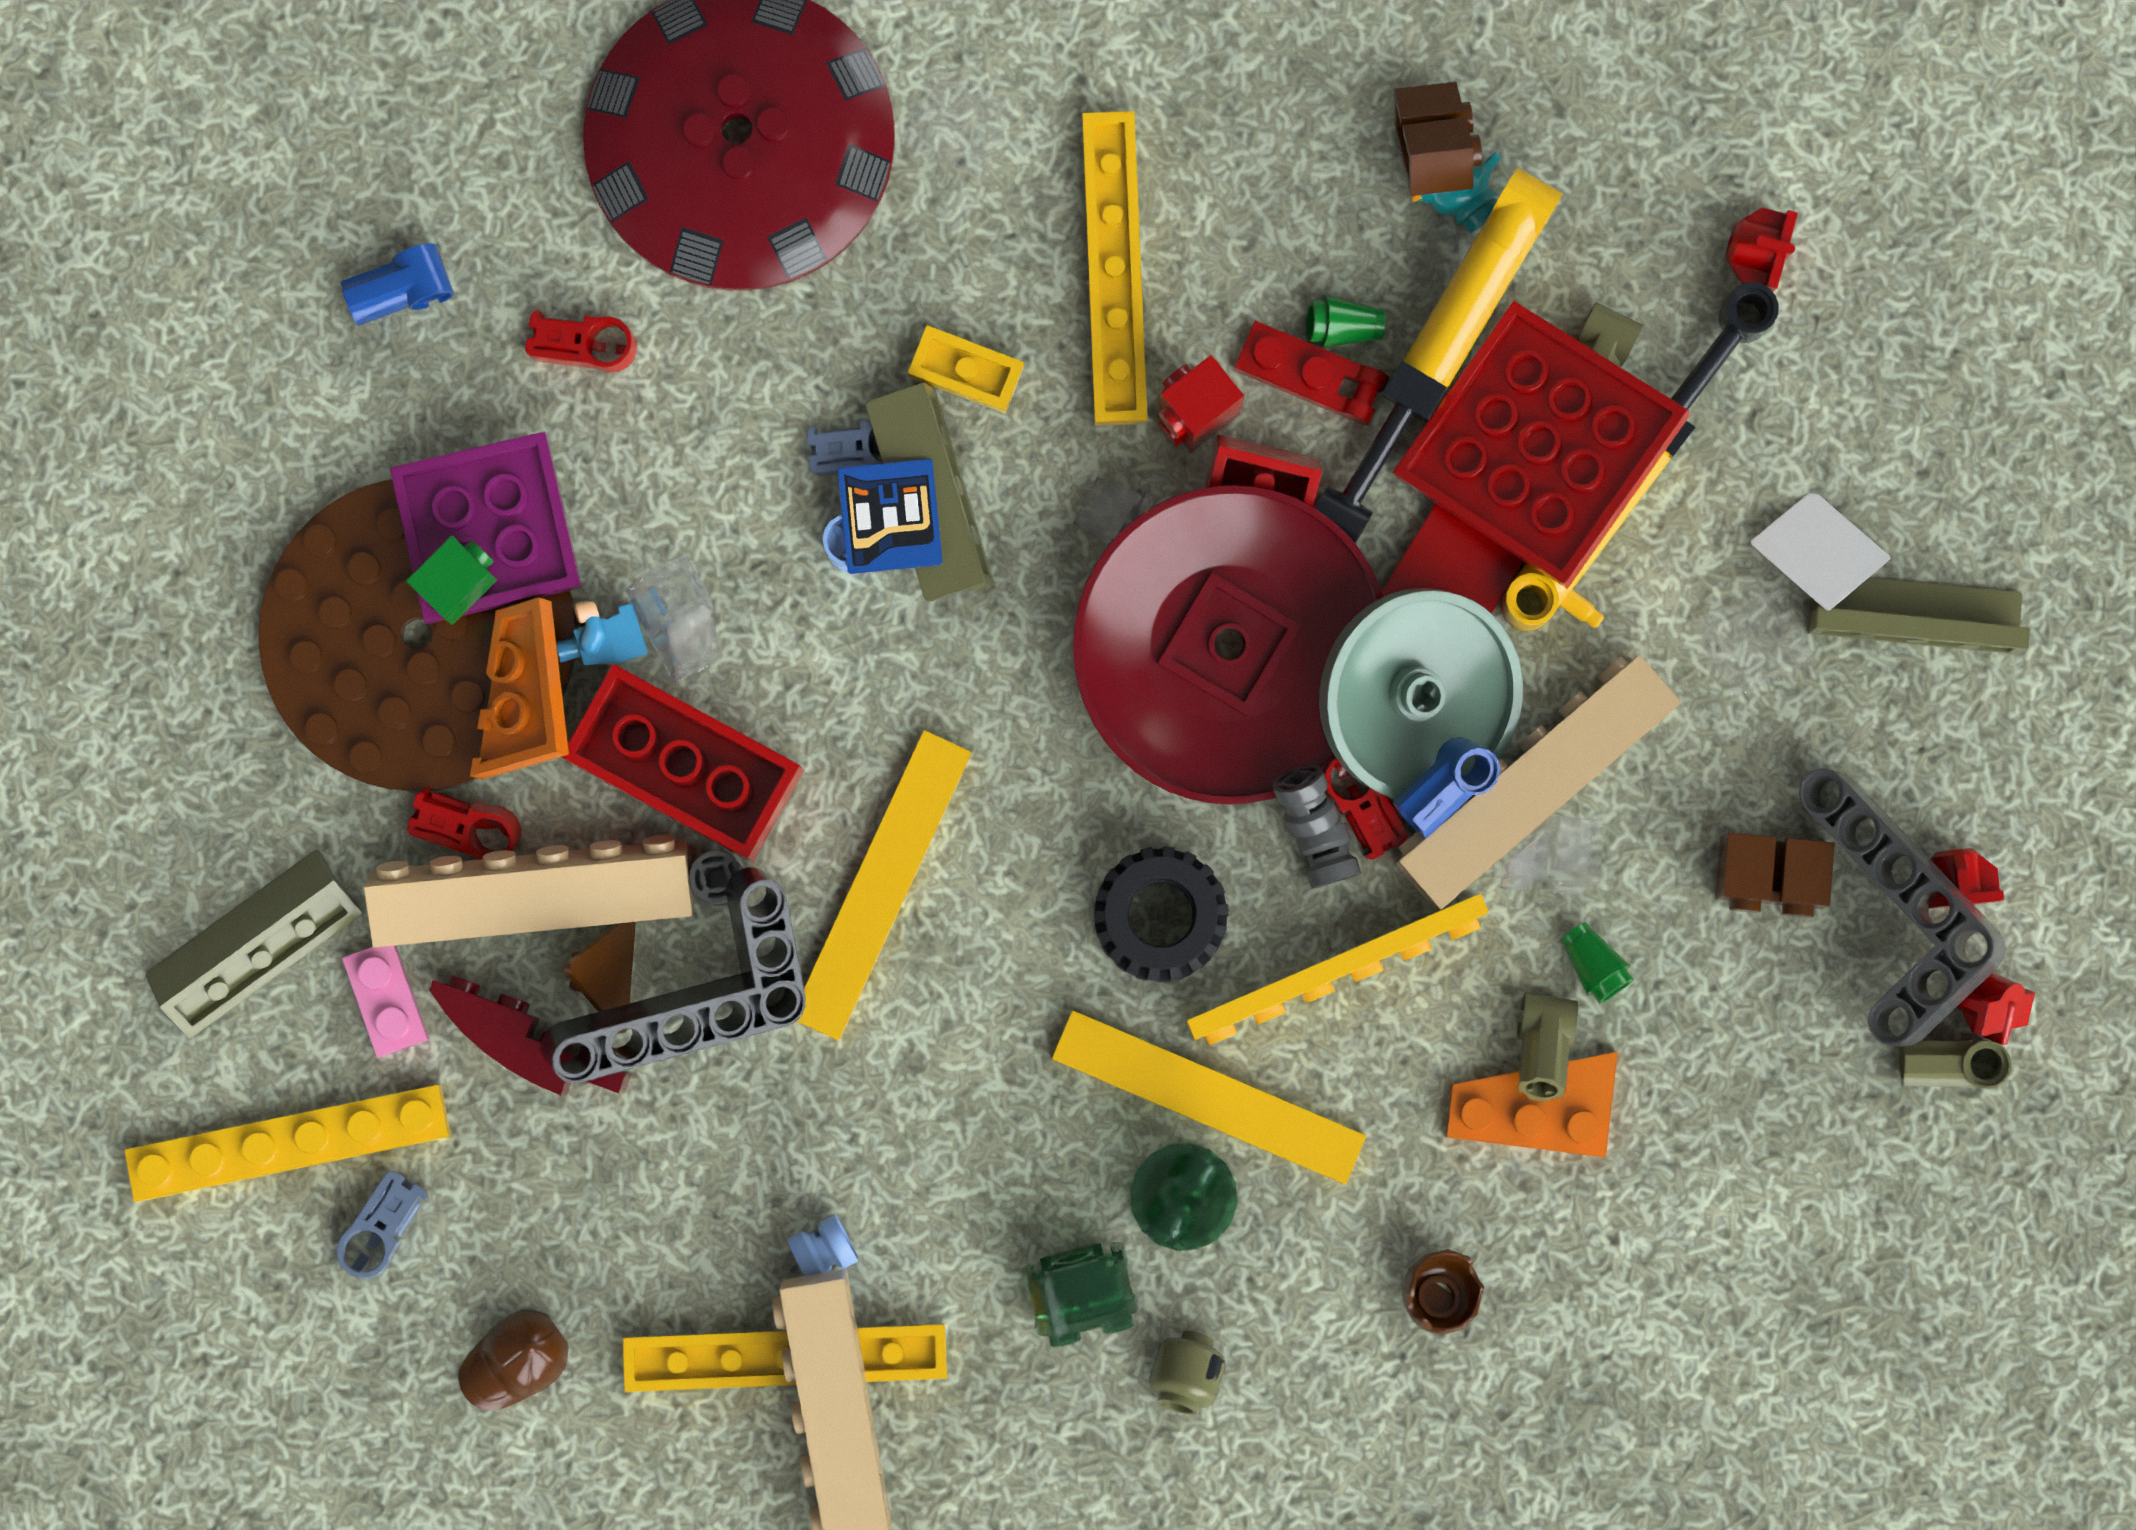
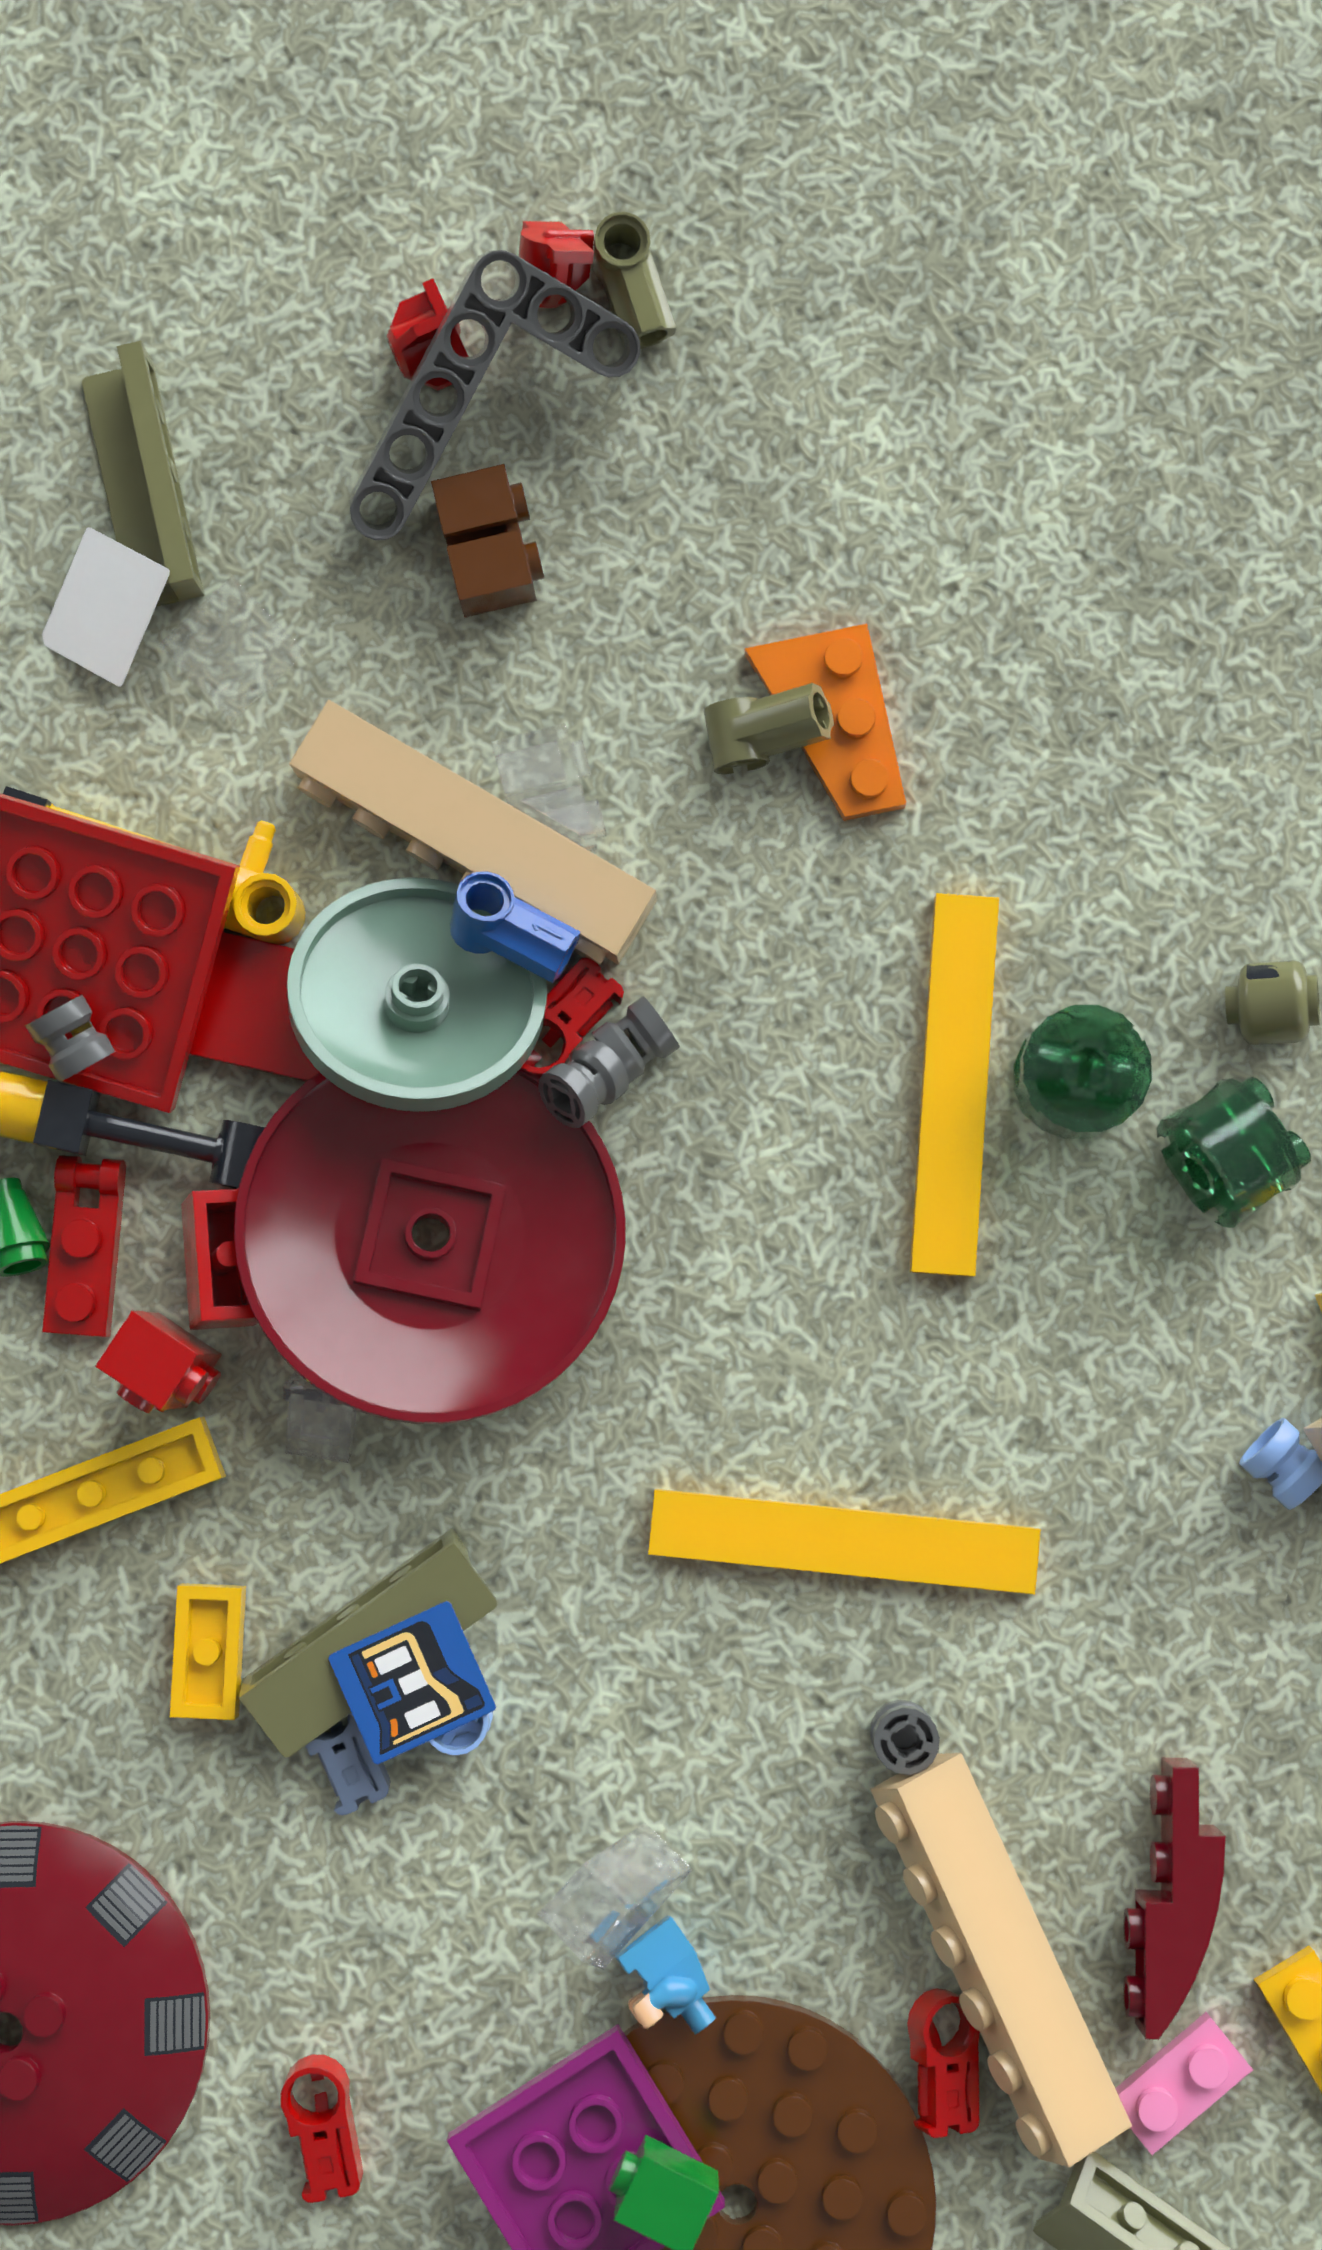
camera: 100 degrees left, 0 degrees up
(525, 698) = (773, 2048): orange wing -> none
(605, 968) = (1062, 1830): reddish brown piece -> none
(683, 763) = (786, 1829): red brick -> none
(699, 1002) = (1064, 1715): black beam -> none
(1171, 868) = (782, 1150): black tyre -> none
(1360, 962) = (781, 1006): yellow plate -> none
(1432, 1305) = (1098, 755): reddish brown hair -> none
(1461, 418) = (76, 1053): none -> dark grey wheel
(1596, 963) = (654, 703): green cone -> none

